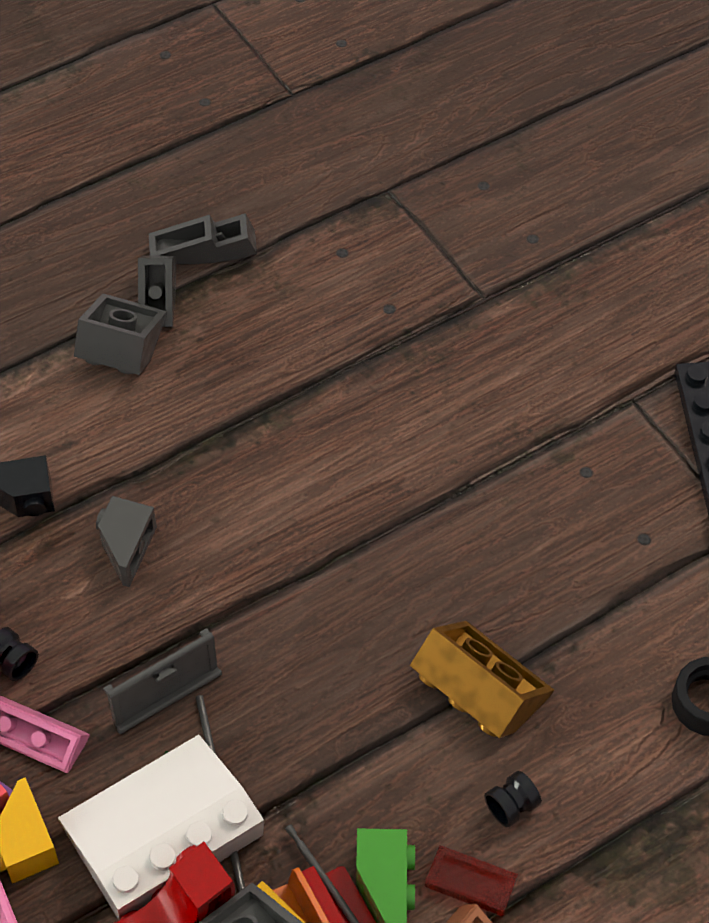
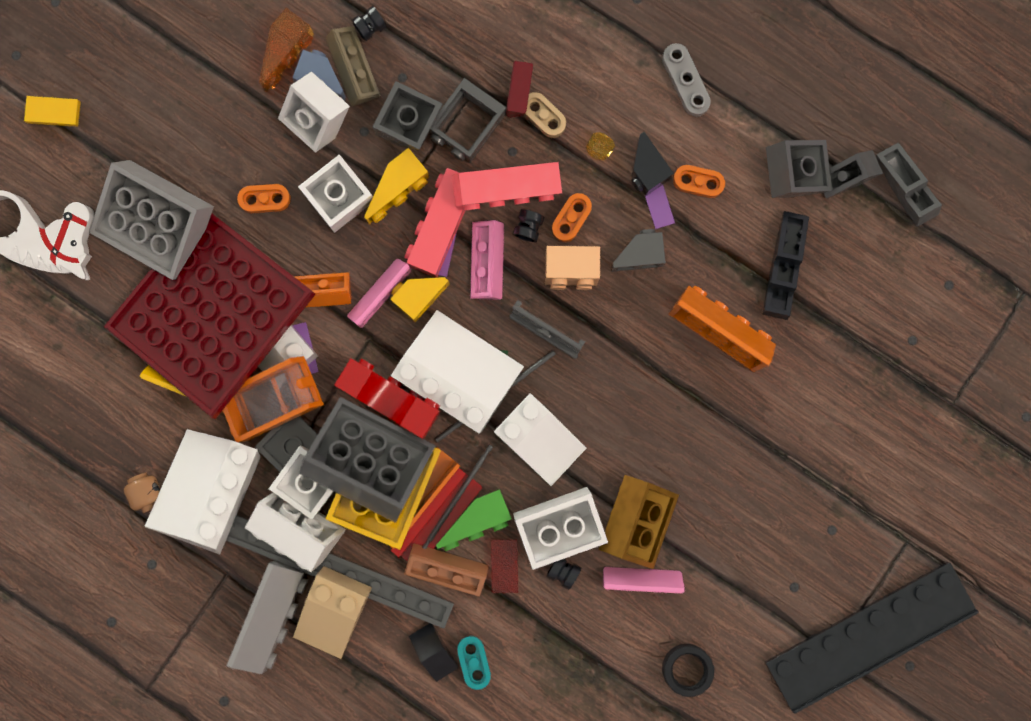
camera: 65 degrees right, 30 degrees up
(33, 602) = (571, 218): none -> orange plate
(69, 443) = (698, 181): none -> orange plate
(79, 501) = (659, 208): none -> medium lavender sticker
(96, 615) = (572, 267): none -> light nougat brick
(230, 394) = (785, 265): none -> black slope
(275, 479) = (723, 329): none -> orange slope
(307, 758) = (540, 439): none -> white slope
(447, 773) = (560, 528): none -> white slope
(564, 706) = (642, 580): none -> bright pink slope

